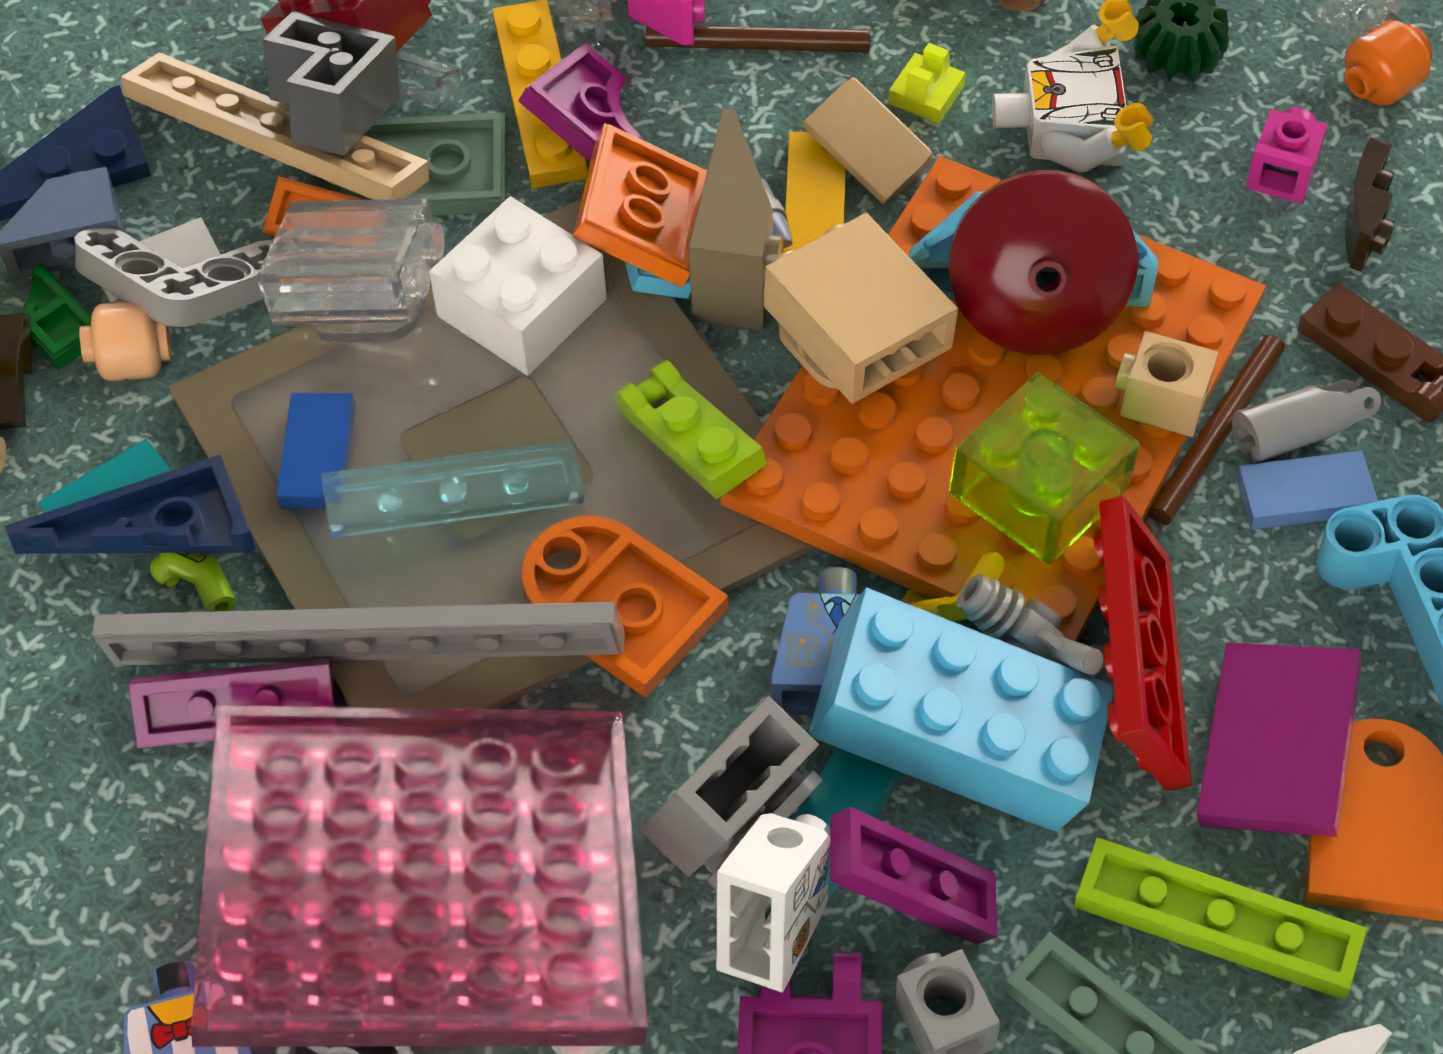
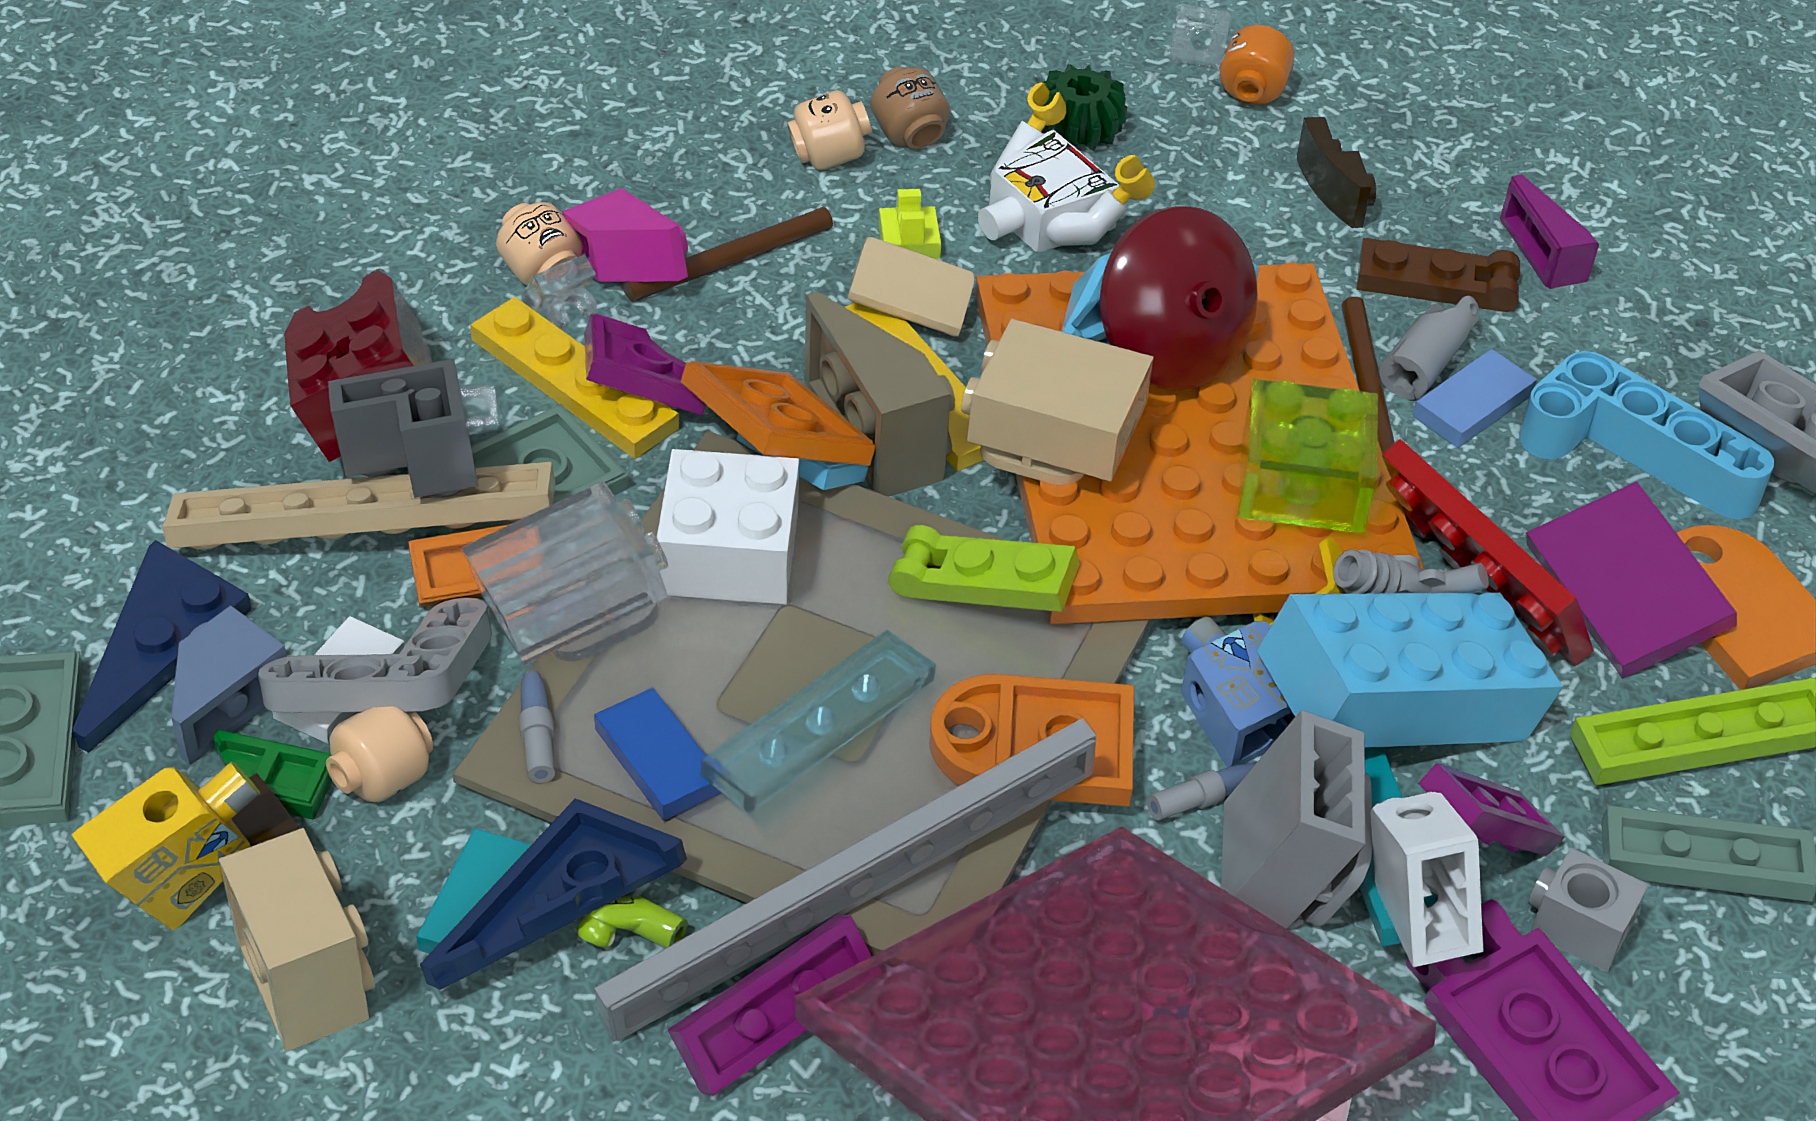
camera: 40 degrees left, 10 degrees down
(249, 381) = (536, 728): none -> light grey piece
(719, 717) = (1199, 791): none -> light grey piece
(1166, 383) = (1334, 350): tan brick -> none
(1291, 142) = (1241, 148): dark pink brick -> none

